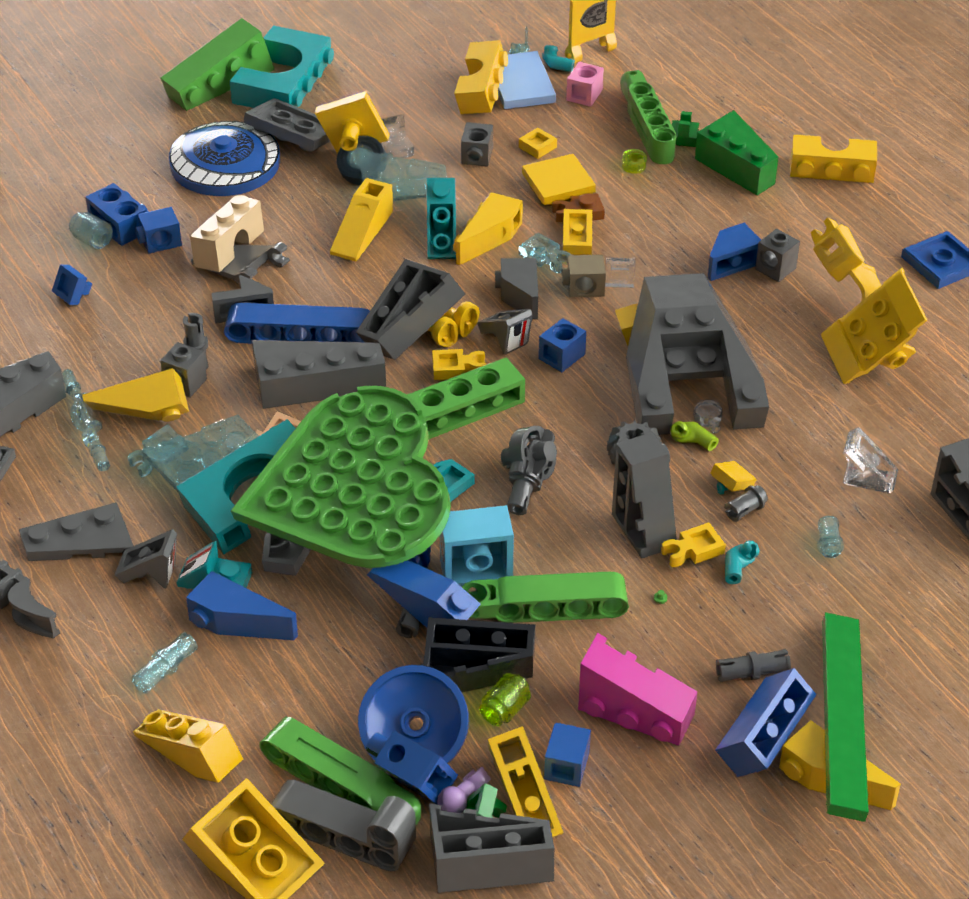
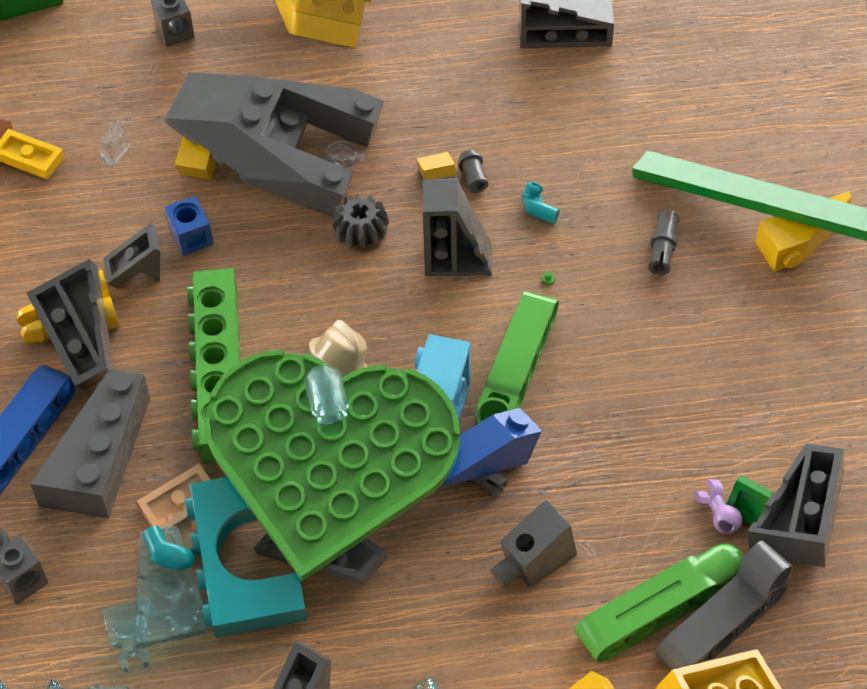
camera: 65 degrees left, 10 degrees up
(148, 397) = (48, 613): yellow slope -> none
(206, 560) = (340, 631): teal slope -> none
(224, 432) = (165, 553): none -> teal arm
(237, 611) = (402, 631): blue slope -> none
(345, 662) = (535, 547): none -> dark grey torso
(386, 446) = (326, 394): none -> clear light blue brick
(411, 765) = (695, 530): blue torso -> none
(412, 694) = (650, 508): blue dish -> none
(453, 362) = (158, 324): yellow plate -> none
(478, 482) = (340, 348): none -> tan piece
(479, 651) = (570, 442): black wedge -> none
(505, 699) = (628, 435): clear neon green brick -> none
(519, 283) = (81, 227): dark grey slope -> none
(522, 777) = (729, 454): yellow slope -> none
(528, 464) = (346, 302): dark grey pin -> none
(545, 252) = (38, 192): clear light blue plate -> none
(567, 754) = (716, 406): blue panel -> none
(585, 276) = (101, 170): dark tan brick -> none
(632, 695) = (671, 336): dark pink wedge -> none
(693, 433) = (364, 172): lime arm -> none
(695, 543) = (507, 226): yellow plate -> none
(733, 251) = (141, 48): blue slope -> none
(766, 722) = (743, 255): blue brick -> none
(830, 542) = (543, 130): clear light blue pin -> none
(868, 464) = (476, 72): clear slope -> none

